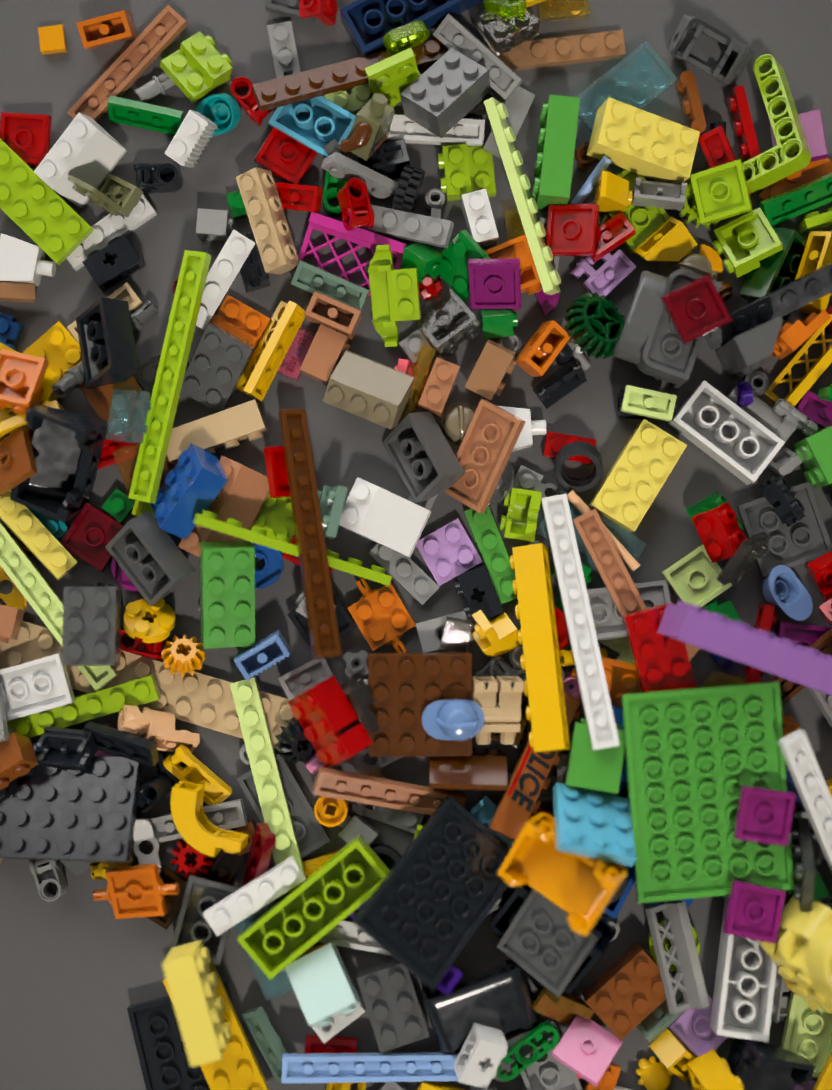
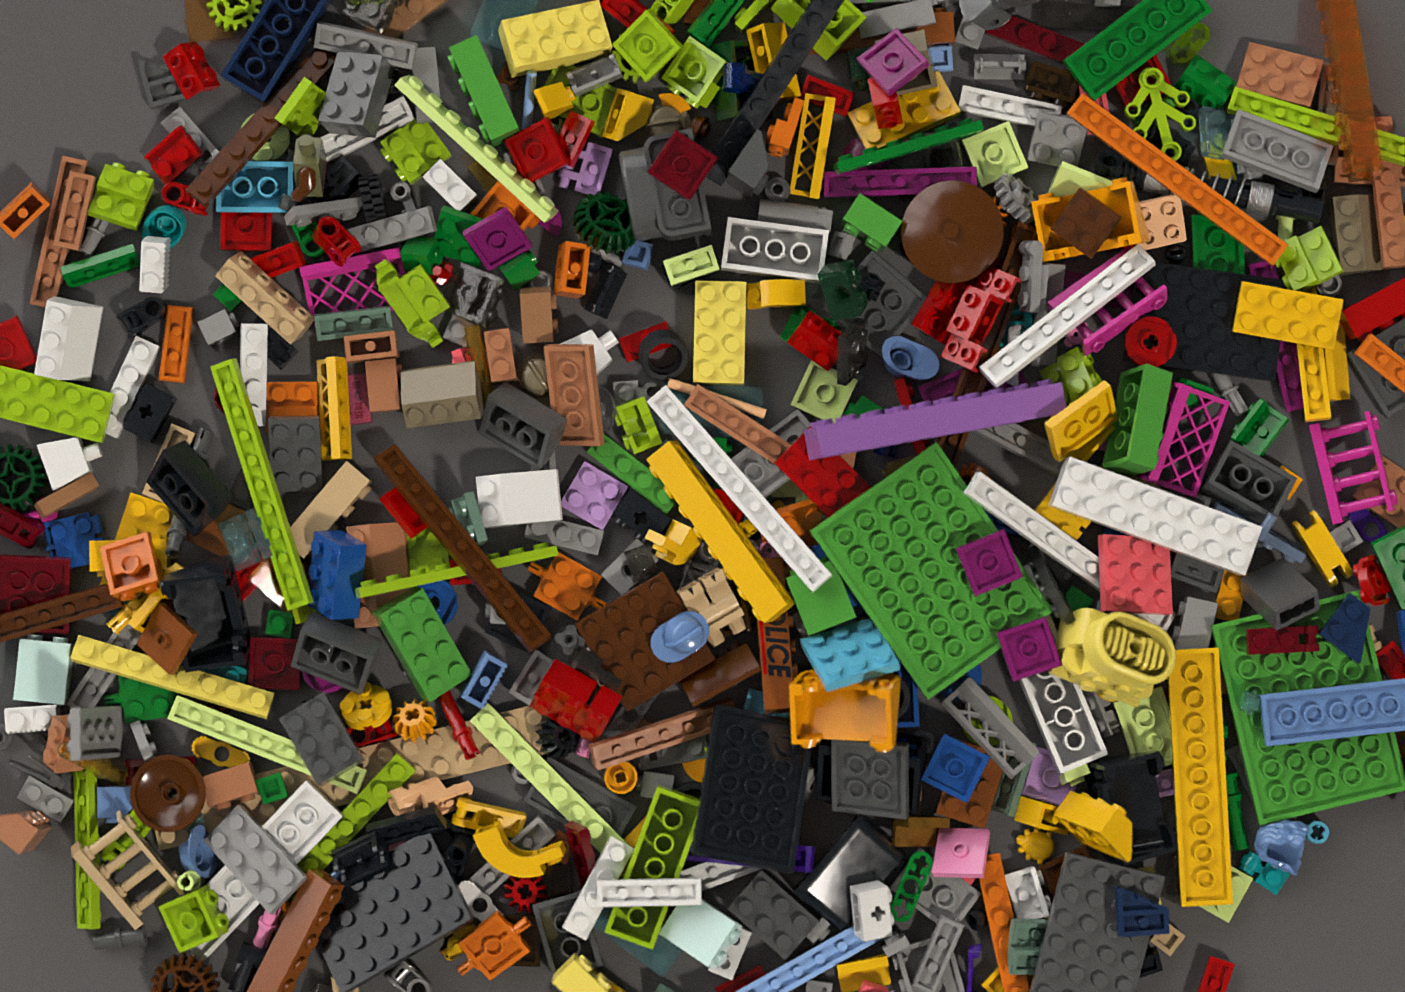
camera: 35 degrees left, 0 degrees up
(27, 642) = (272, 788): none -> green plate
(114, 196) = (115, 351): olive bracket -> none
(149, 53) = (74, 211): none -> nougat plate
(171, 219) = (176, 344): none -> orange tile
(217, 684) = (460, 730): none -> red pin
(262, 57) = (174, 155): none -> red plate
(296, 930) = (649, 892): none -> white plate
(400, 839) = (695, 769): none -> light orange tile
(405, 37) = (293, 66): clear neon green beam -> none
(425, 1044) = (820, 931): none -> light grey plate
(605, 370) = (638, 255): none -> medium blue plate
(627, 976) = (955, 768): none -> blue plate
(706, 470) = (776, 293): none -> yellow brick
(724, 1042) = (1074, 776): none -> yellowish green plate
(744, 394) = (769, 208): dark purple tile -> none
(758, 511) = (839, 303): none -> clear green brick
(784, 265) = (739, 79): none -> clear blue piece
(795, 417) = (826, 202): light grey axle -> none

